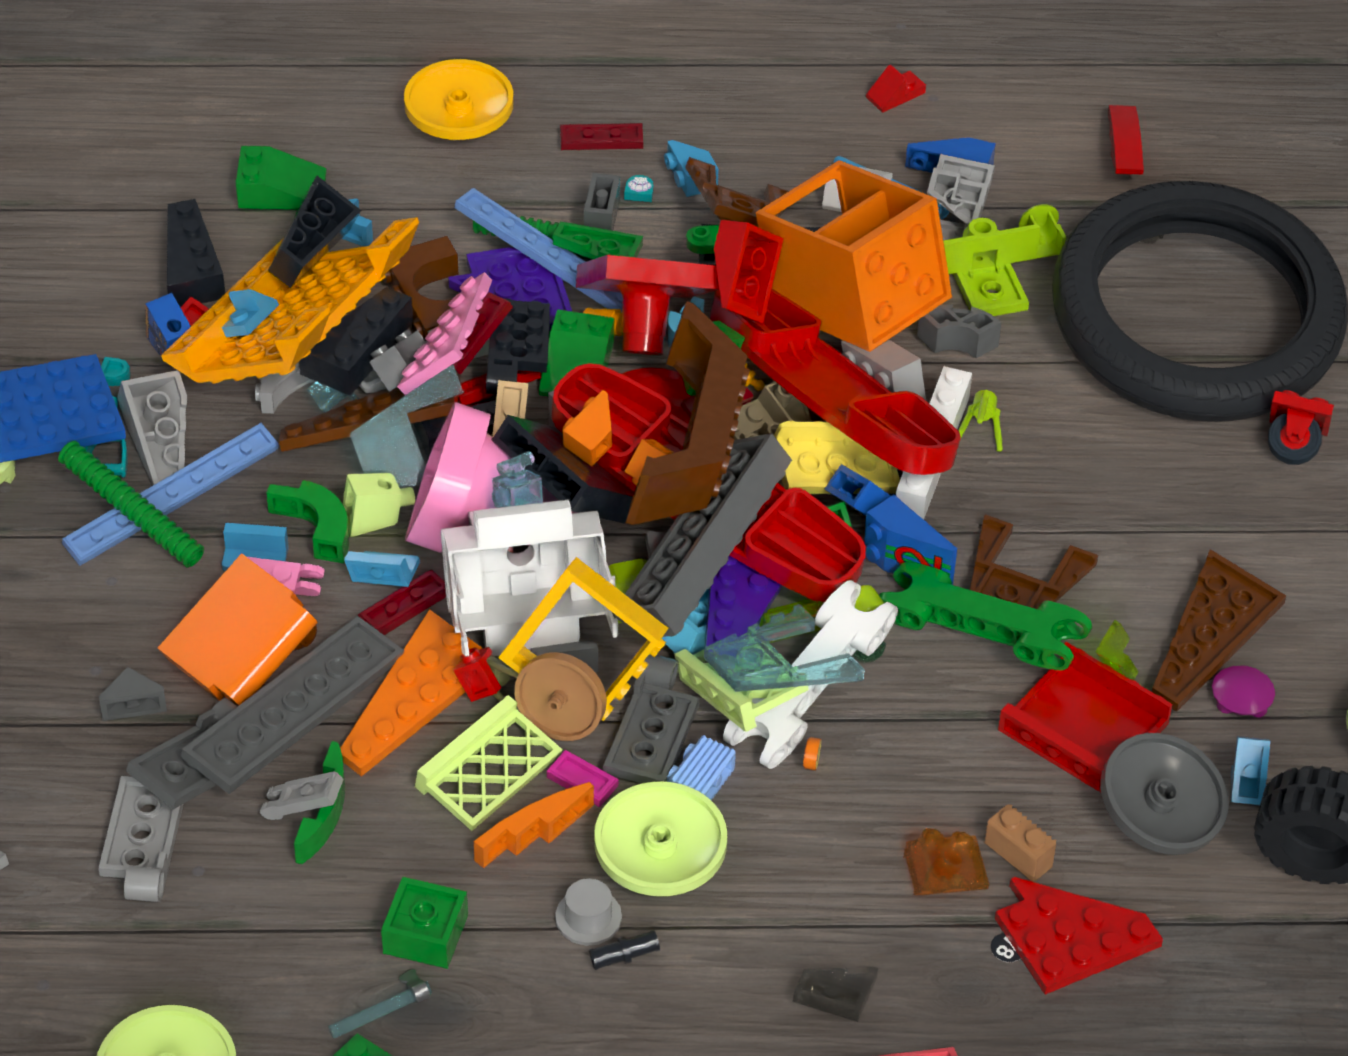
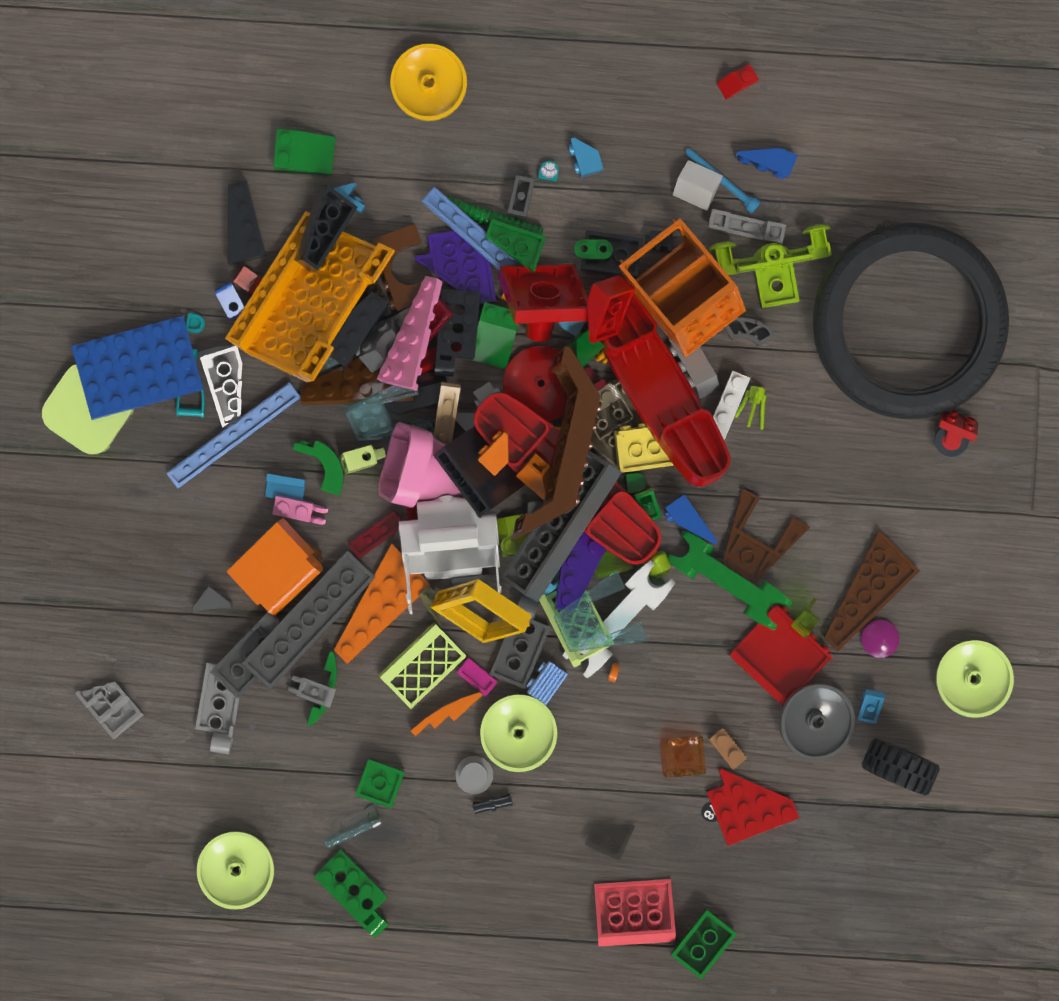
camera: 10 degrees right, 40 degrees up
(131, 503) = (207, 453): green piece -> none
(250, 312) = (283, 300): dark azure slope -> none
(381, 567) = (365, 507): dark azure panel -> none
(476, 674) = (419, 605): red bracket -> none
(515, 483) = (447, 498): clear light blue brick -> none
(561, 696) = (466, 632): medium nougat piece -> none
(601, 136) = (526, 116): dark red tile -> none
(725, 202) = (612, 224): reddish brown wing -> none
(847, 481) = (665, 480): blue torso -> none
(961, 186) = (767, 199): light grey slope -> none
(1125, 140) = (890, 148): red slope -> none

